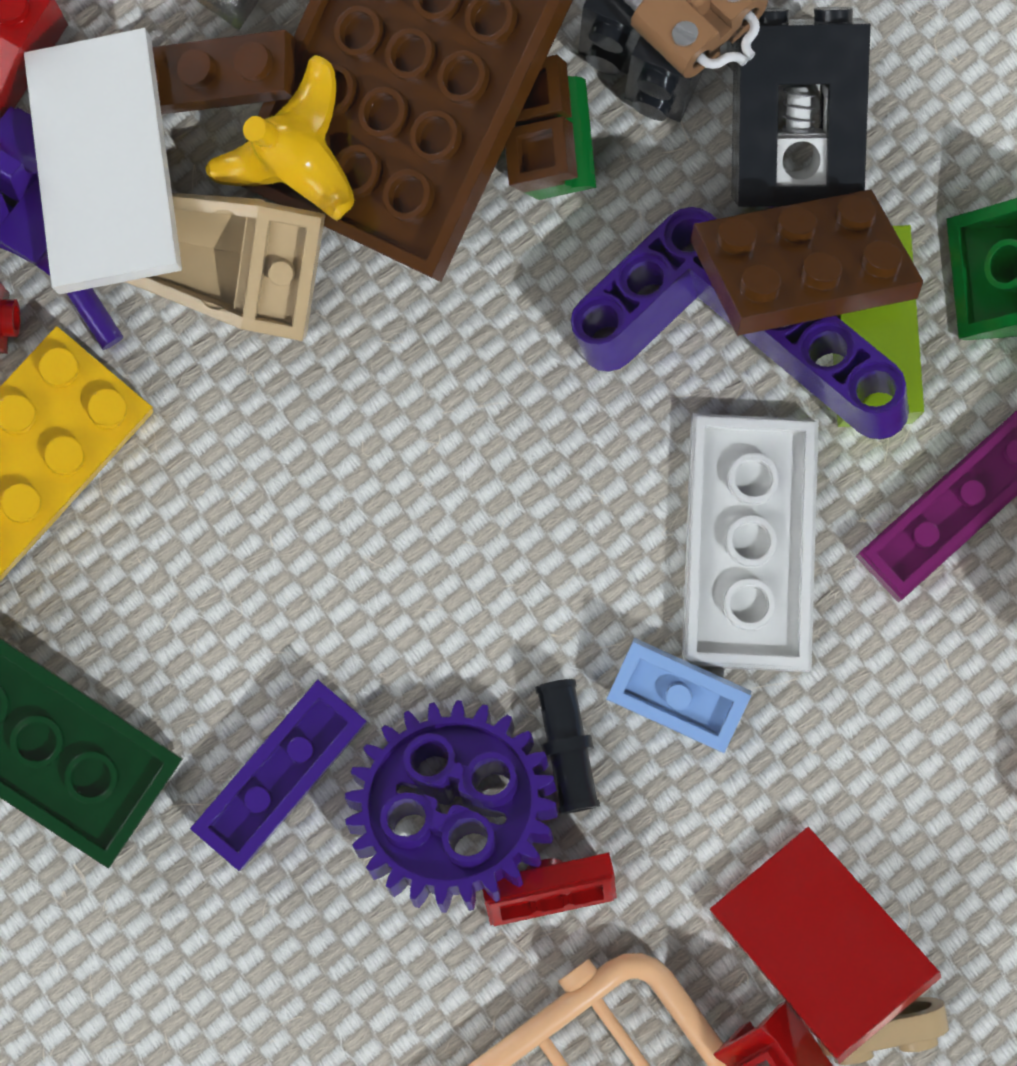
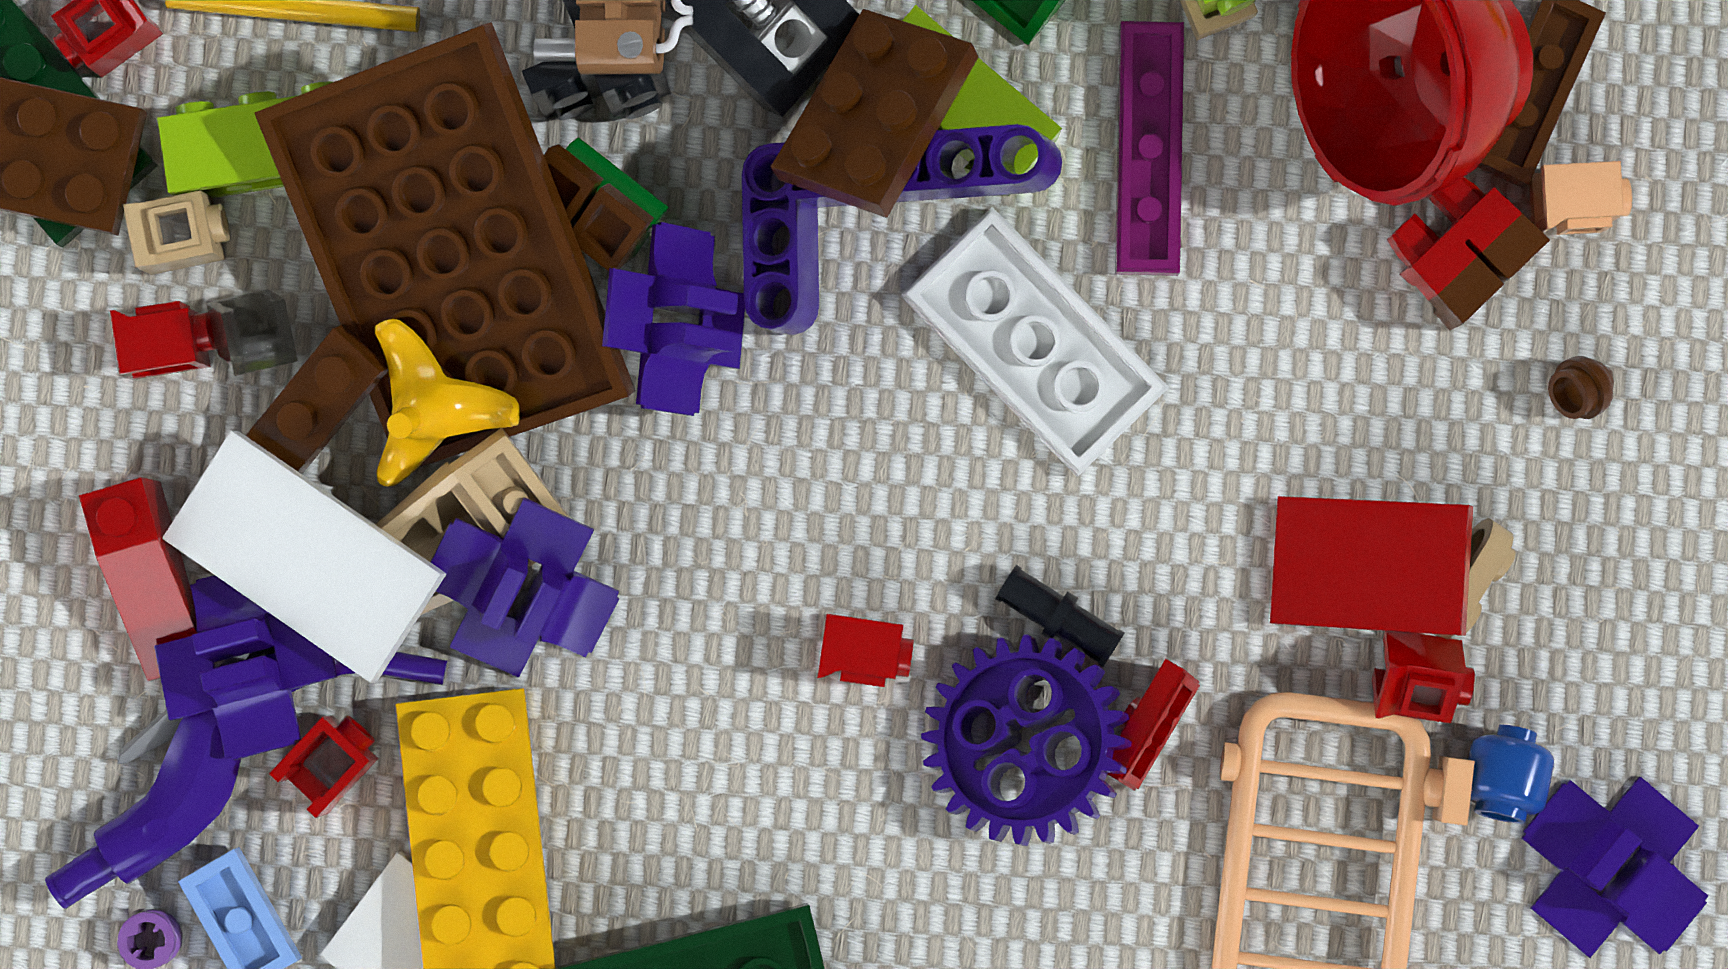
camera: 45 degrees left, 5 degrees up
(238, 376) = (489, 571): none -> dark purple piece
(278, 775) = (886, 844): dark purple plate -> none
(407, 625) = (864, 650): none -> red window
(496, 286) = (674, 353): none -> dark purple piece
(679, 695) = (1098, 500): light blue plate -> none

